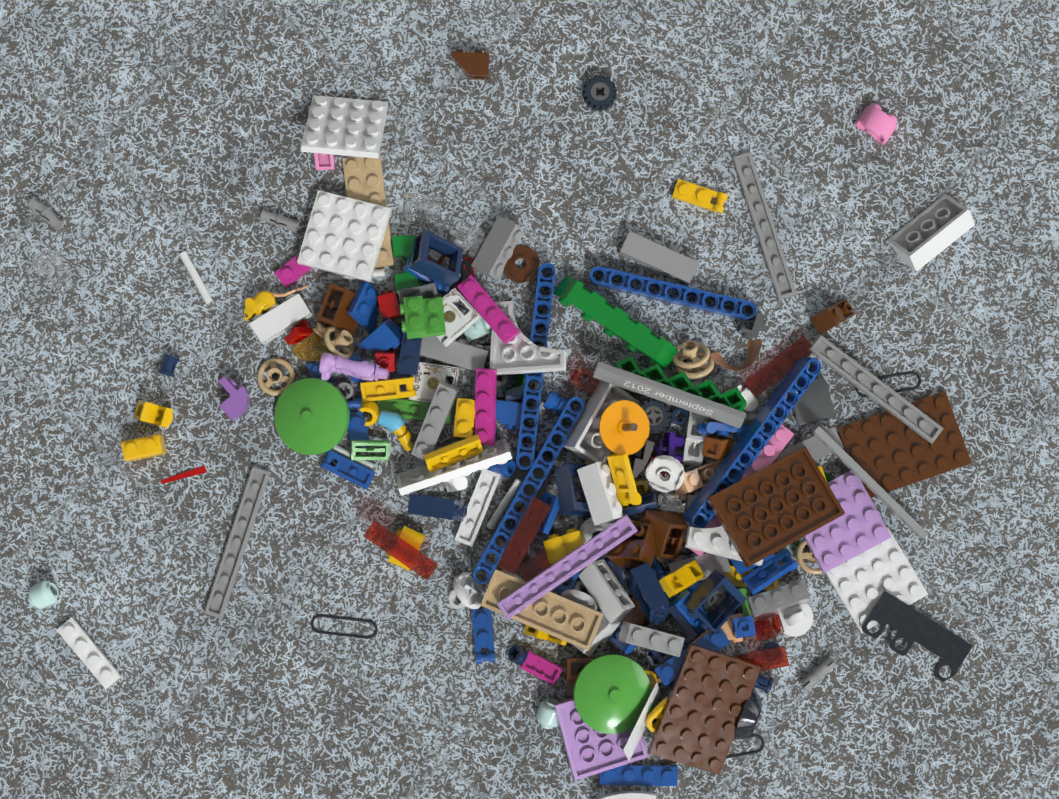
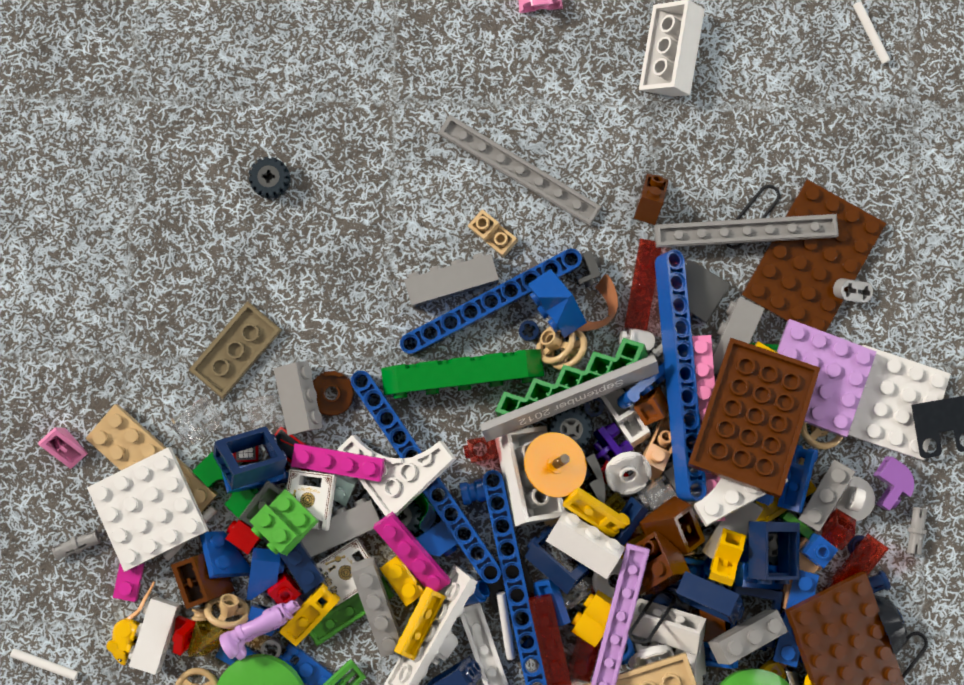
camera: 35 degrees left, 0 degrees up
(345, 126) = (61, 409): white plate -> none
(390, 420) = (335, 641): yellow piece -> none
(472, 64) = (131, 250): reddish brown slope -> none
(483, 184) = (235, 350): none -> dark tan tile
(599, 568) = (658, 624): none -> black piece
(684, 337) = (535, 333): none -> dark blue bush
(699, 196) = (439, 193): yellow plate -> none
(711, 251) = (492, 233): none -> tan slope
(712, 329) = (556, 304): none -> blue slope
(834, 631) = (899, 482): none -> medium lavender brick
(868, 481) = (808, 319): light grey tile -> none
(914, 483) = (852, 294): none -> light grey beam

